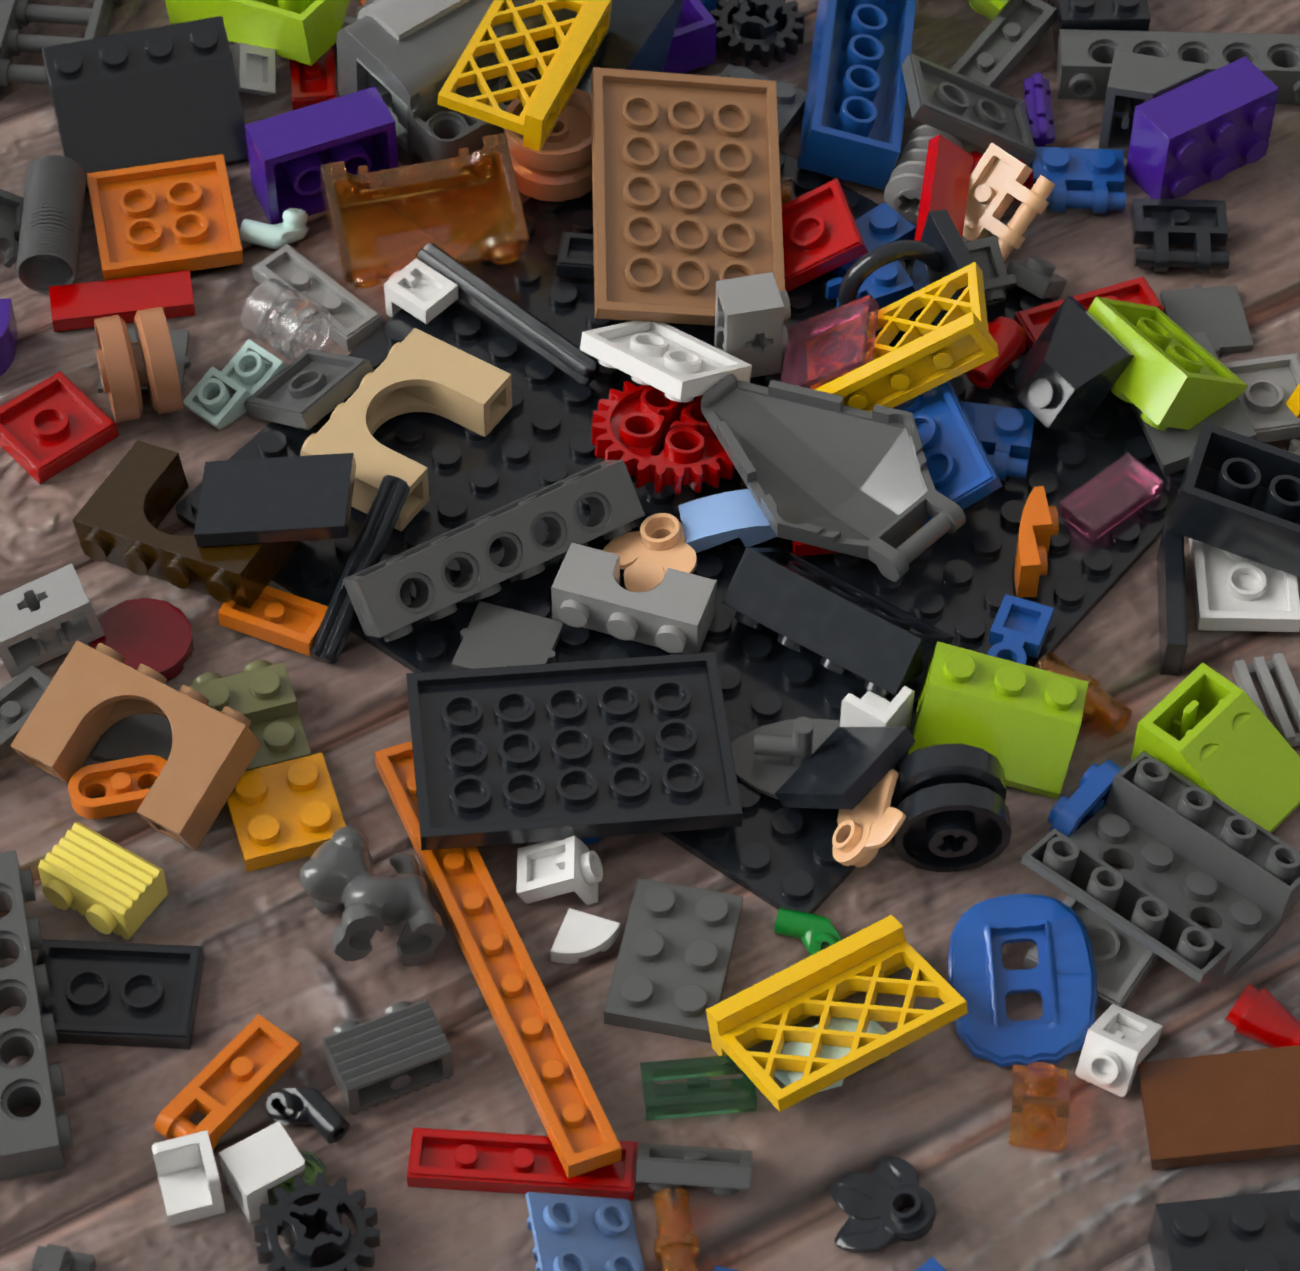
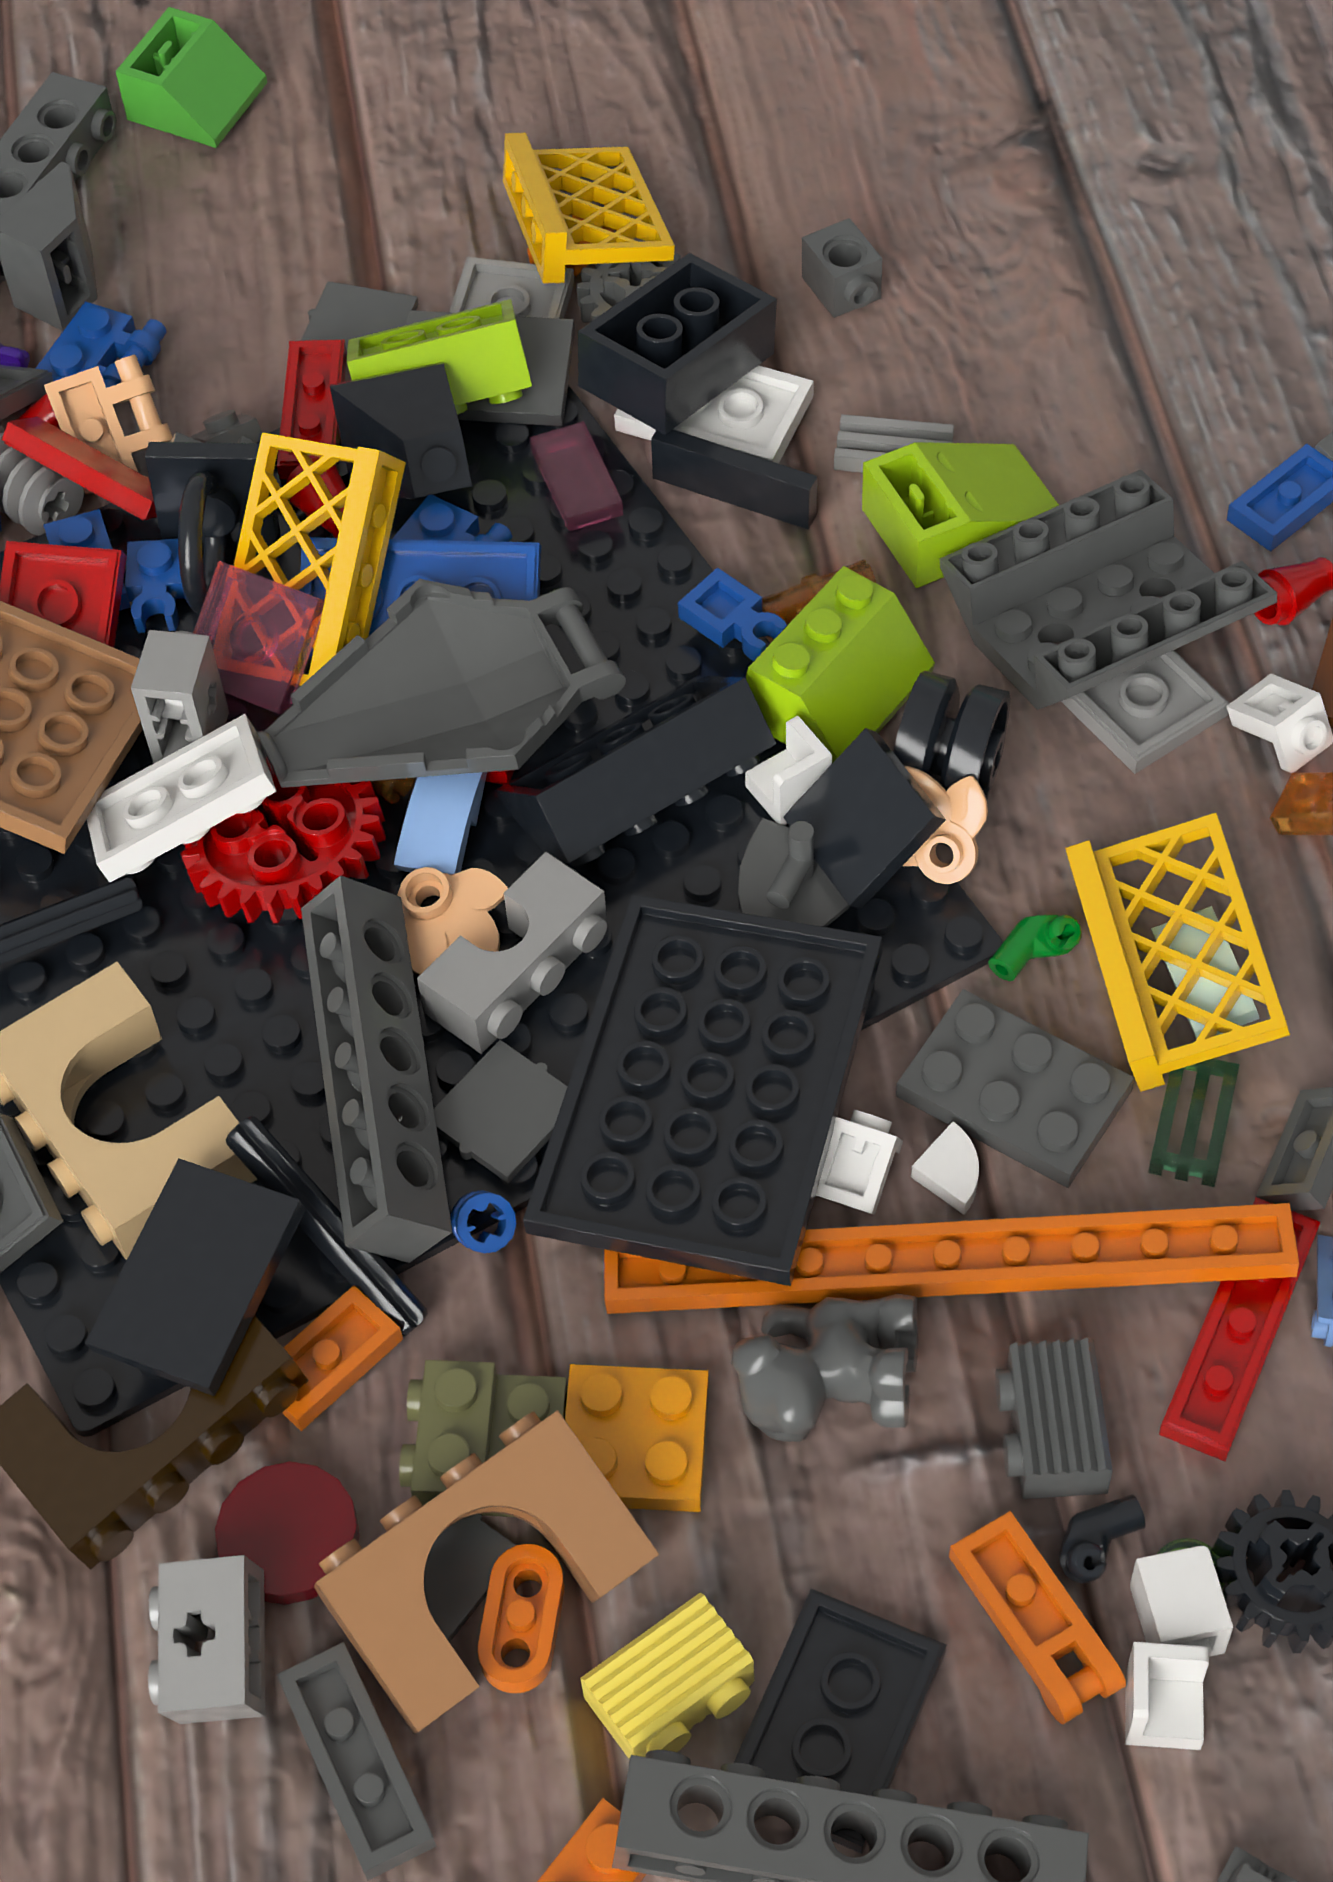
camera: 65 degrees left, 5 degrees up
(402, 652) = (486, 1241): none -> blue bush
(1035, 530) = (630, 569): orange slope -> none
(1062, 978) = (1184, 736): blue piece -> none
(1093, 791) = (969, 636): blue plate -> none
(1180, 223) = (222, 288): black plate -> none
(1201, 130) = (124, 215): dark purple brick -> none

